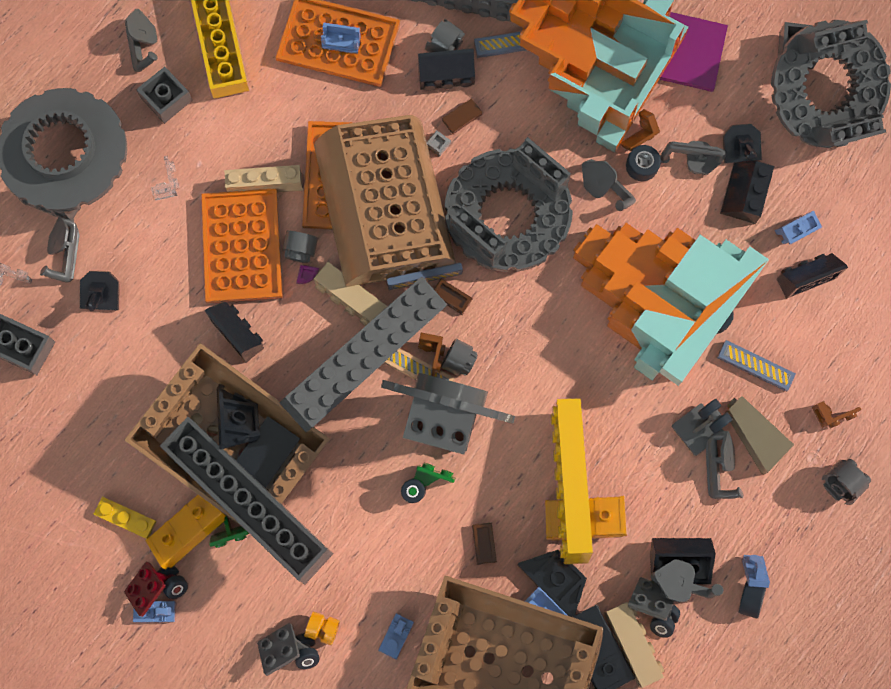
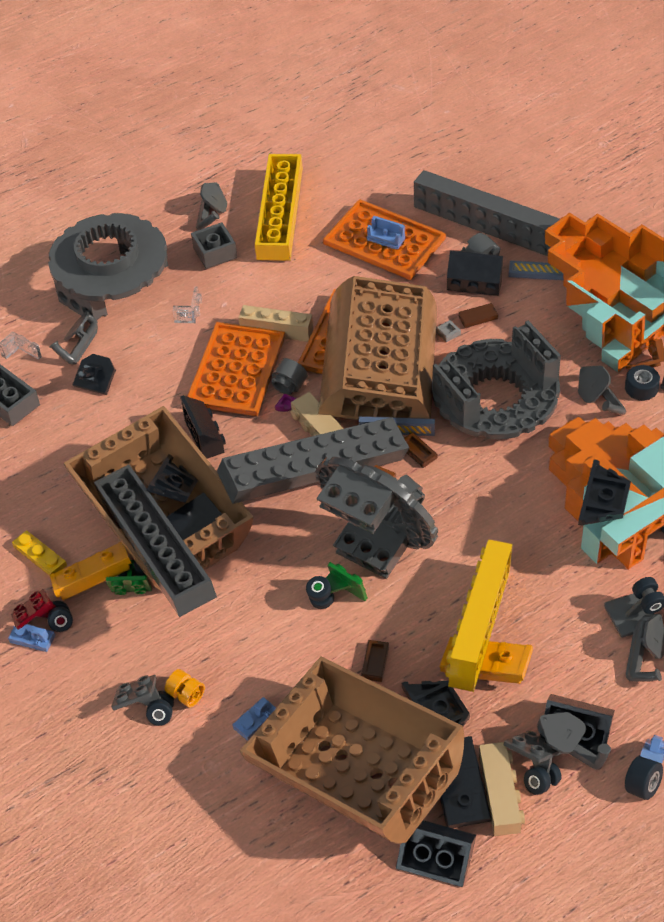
camera: 25 degrees right, 25 degrees down
(657, 333) = (604, 496): none -> black wing

